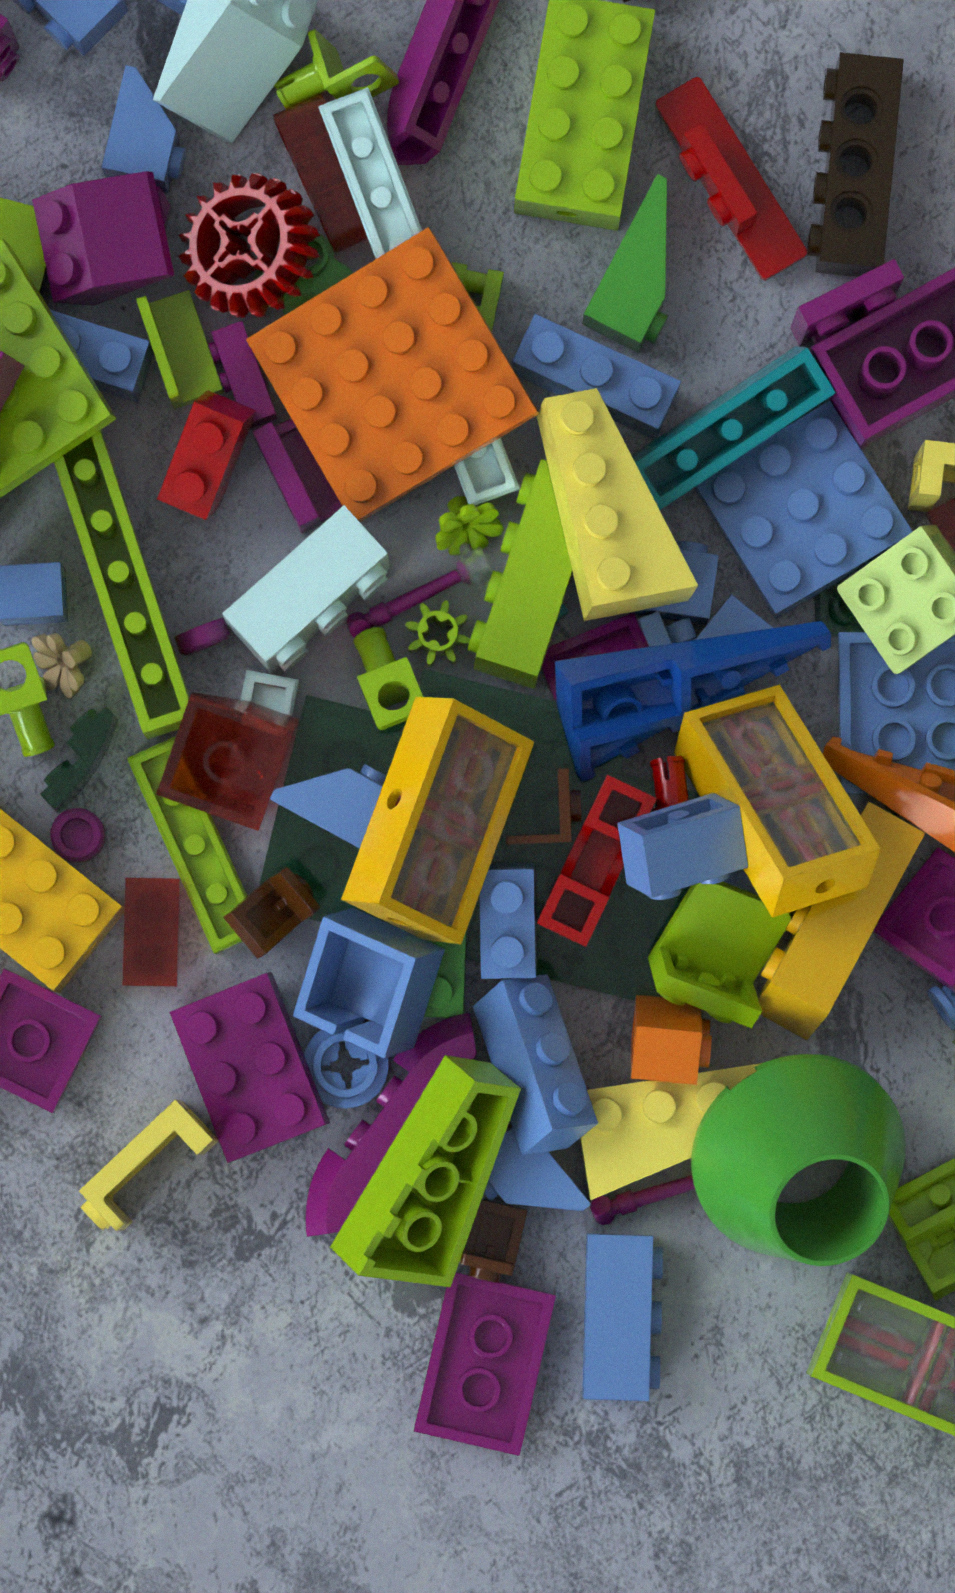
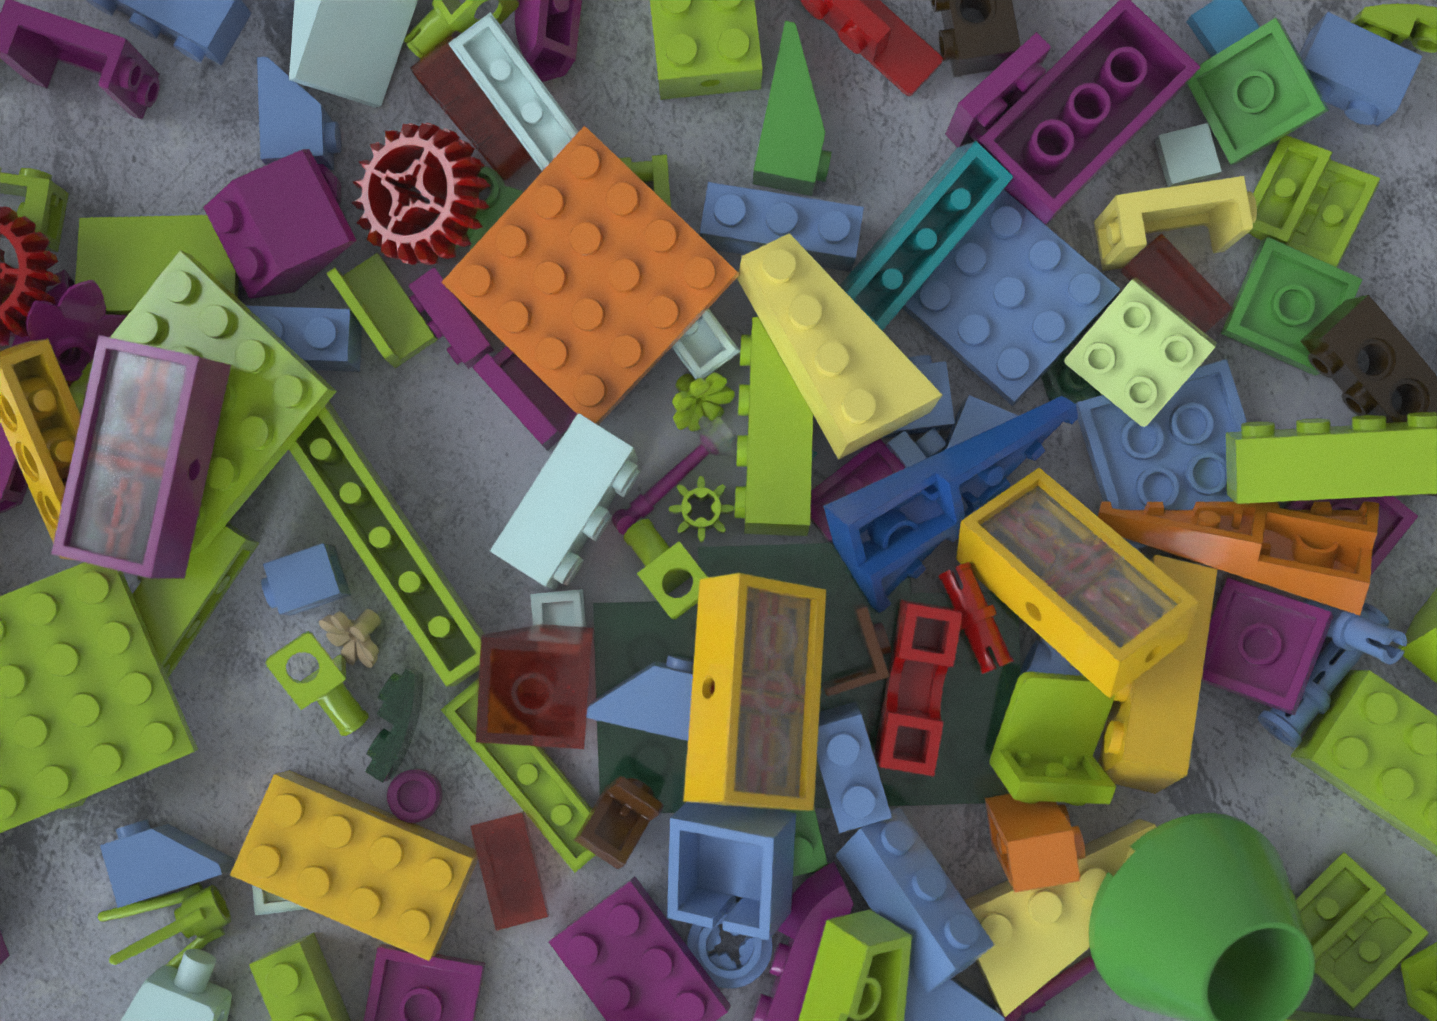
camera: 15 degrees left, 0 degrees up
(202, 637) = (480, 575): magenta tile -> none
(206, 454) = (434, 402): red brick -> none
(683, 846) = (1001, 652): medium blue brick -> none

